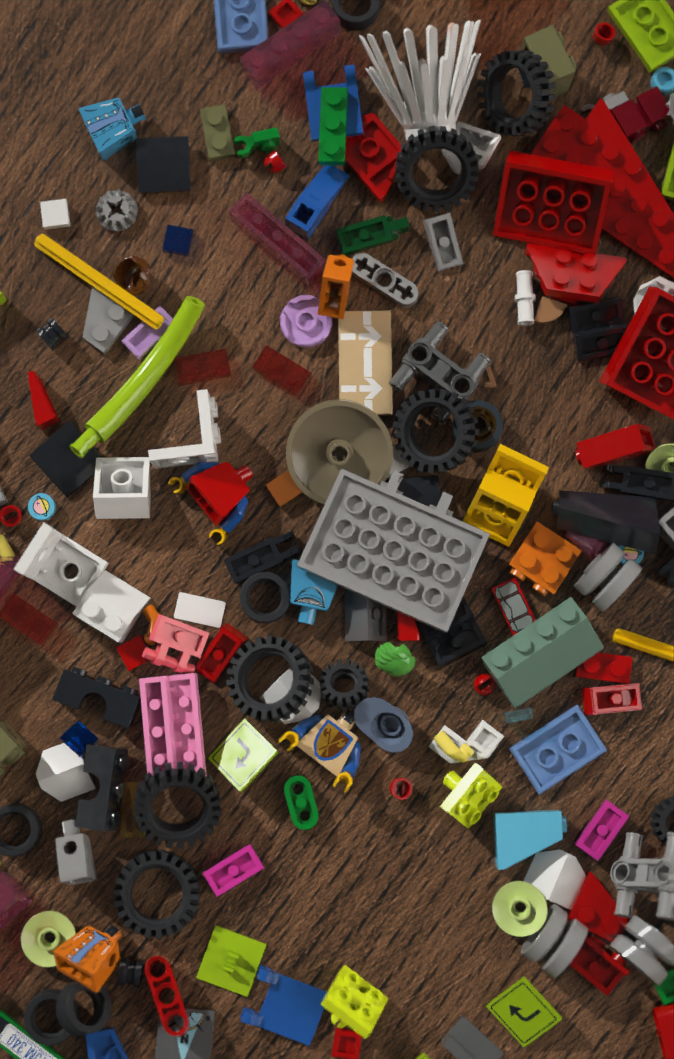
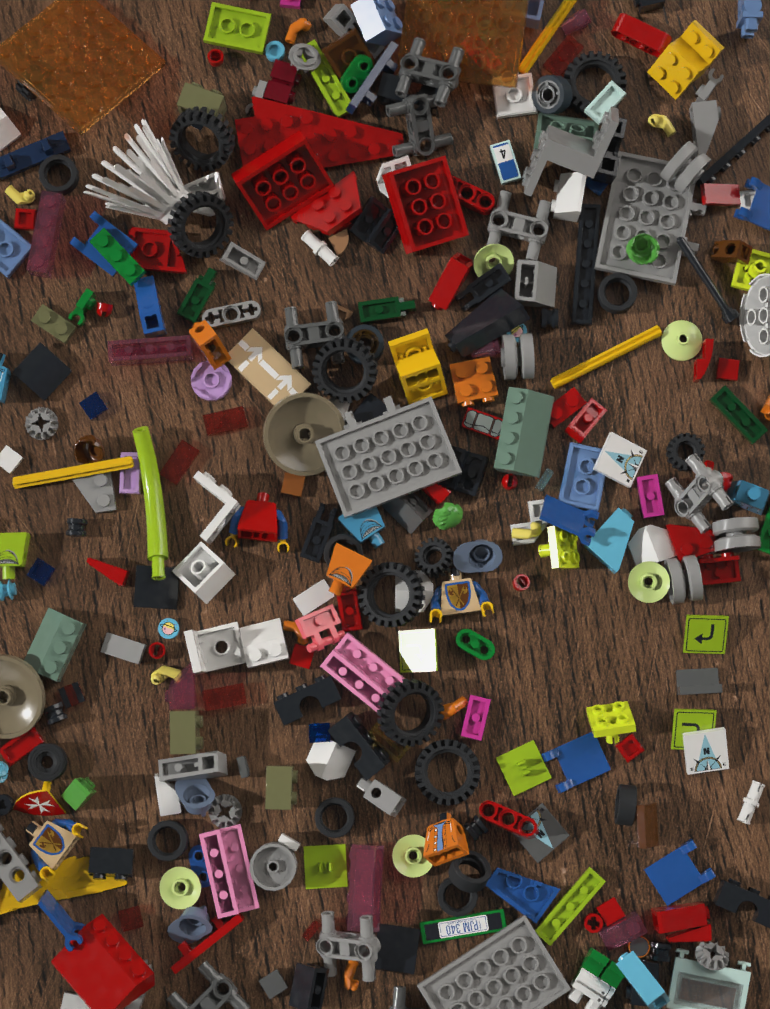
camera: 45 degrees left, 0 degrees up
(222, 840) = (452, 708): none -> orange arm
(251, 614) = (346, 568): none -> orange torso
(504, 775) = (569, 518): none -> blue flag
(528, 412) = (384, 309): none -> dark green hinge
(607, 767) = (619, 459): none -> white tile

